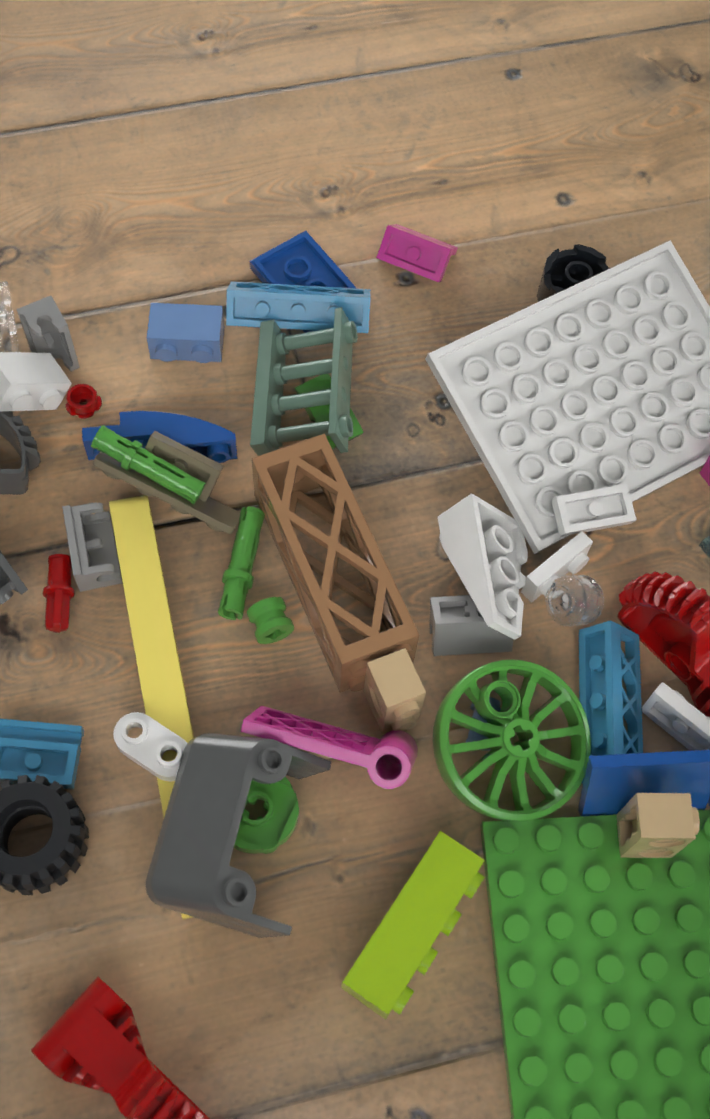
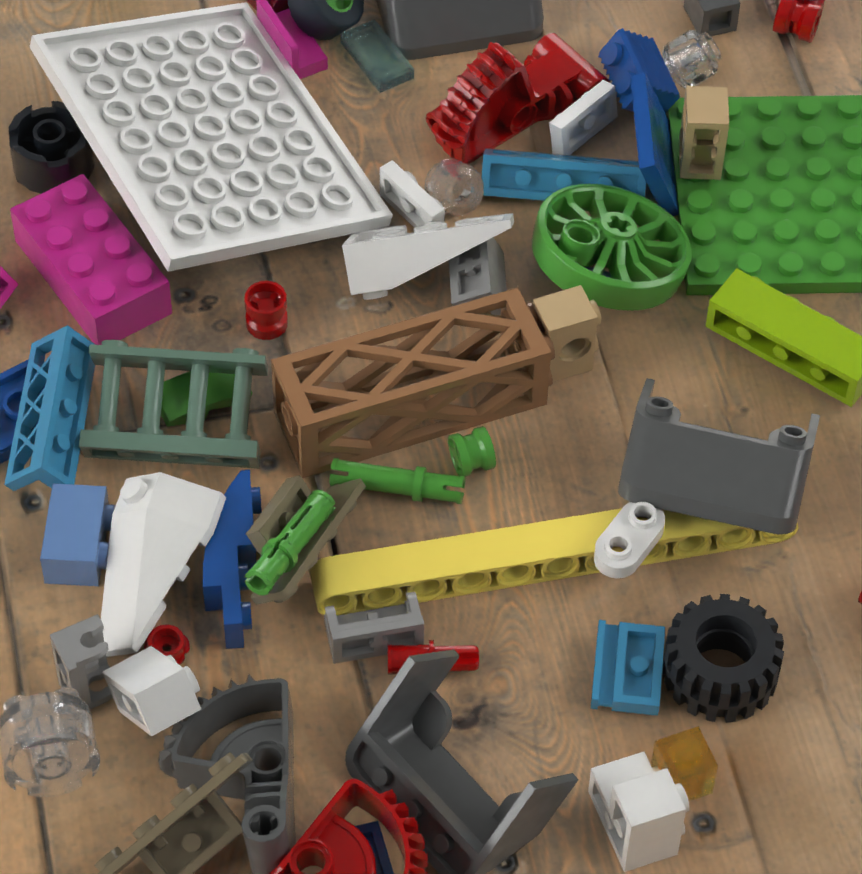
camera: 85 degrees left, 10 degrees down
(179, 380) = (149, 544): none -> white wedge
(386, 759) = (627, 357): dark pink piece -> none
(419, 453) = (266, 310): none -> red wheel
(451, 313) = (91, 261): none -> dark pink piece
(593, 510) = (354, 156): white plate -> none

